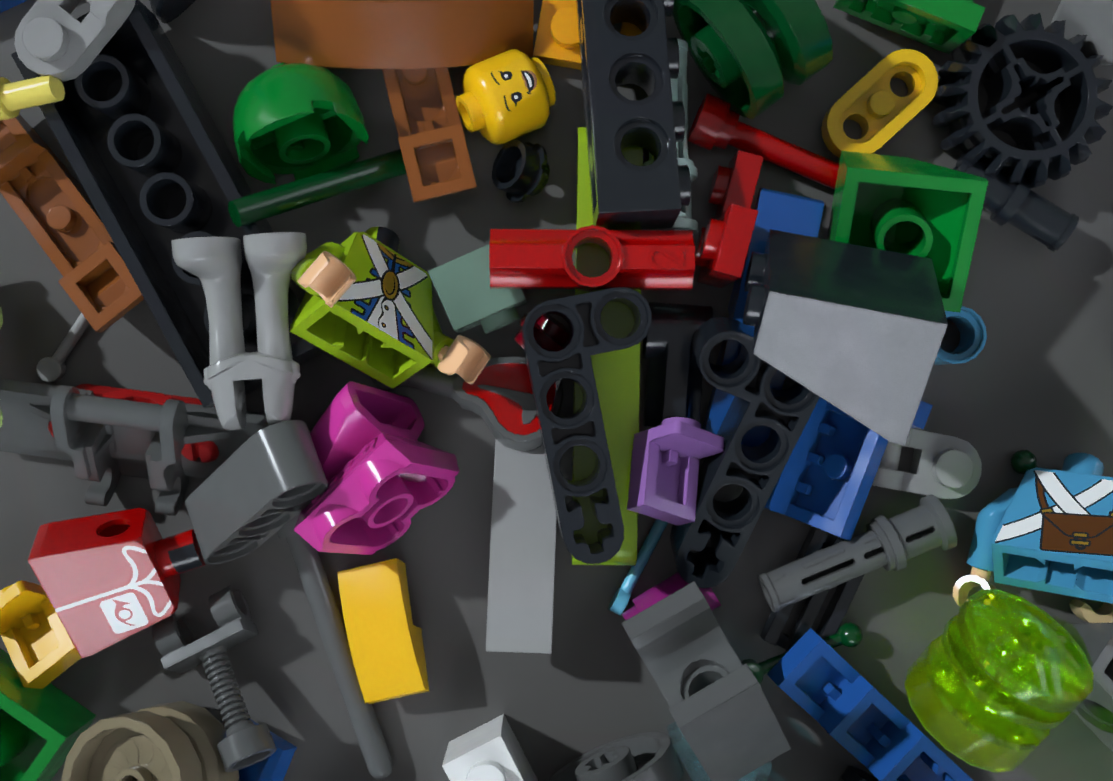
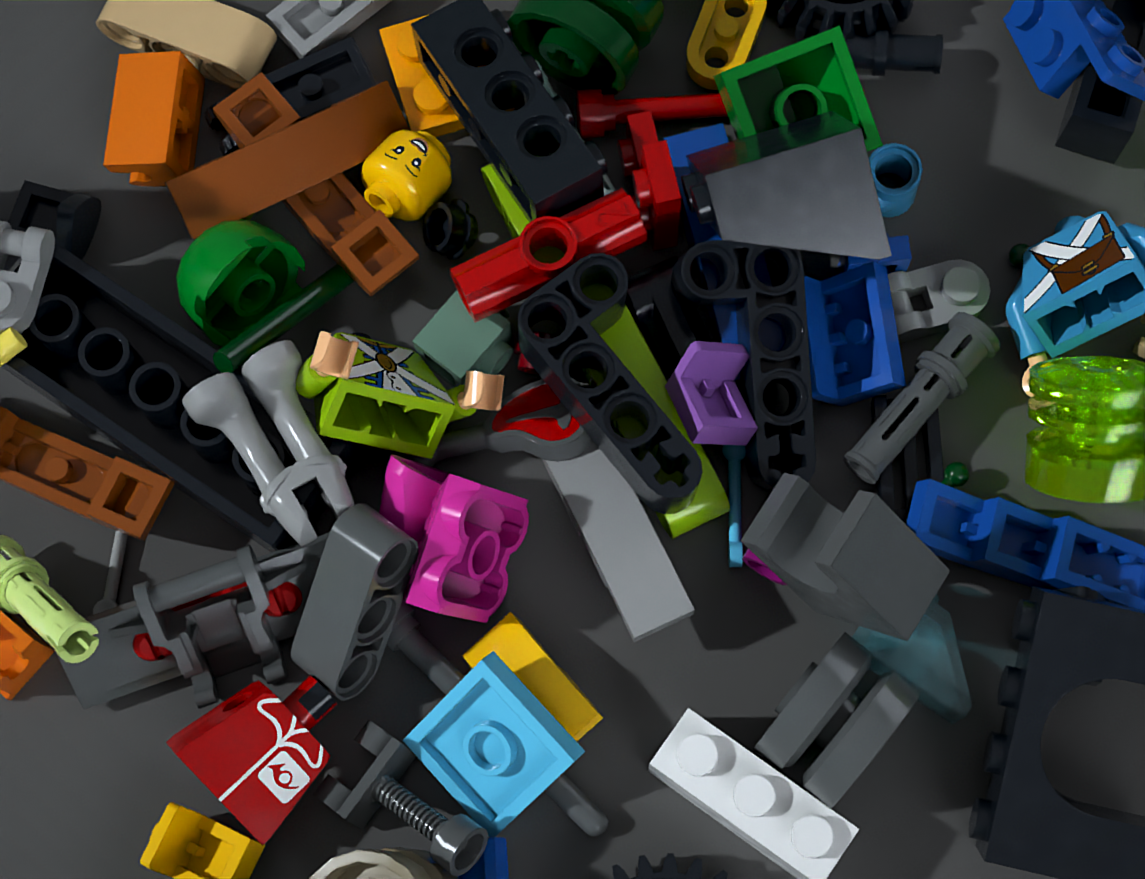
camera: 20 degrees left, 15 degrees down
(321, 672) = (493, 745): none -> medium azure plate

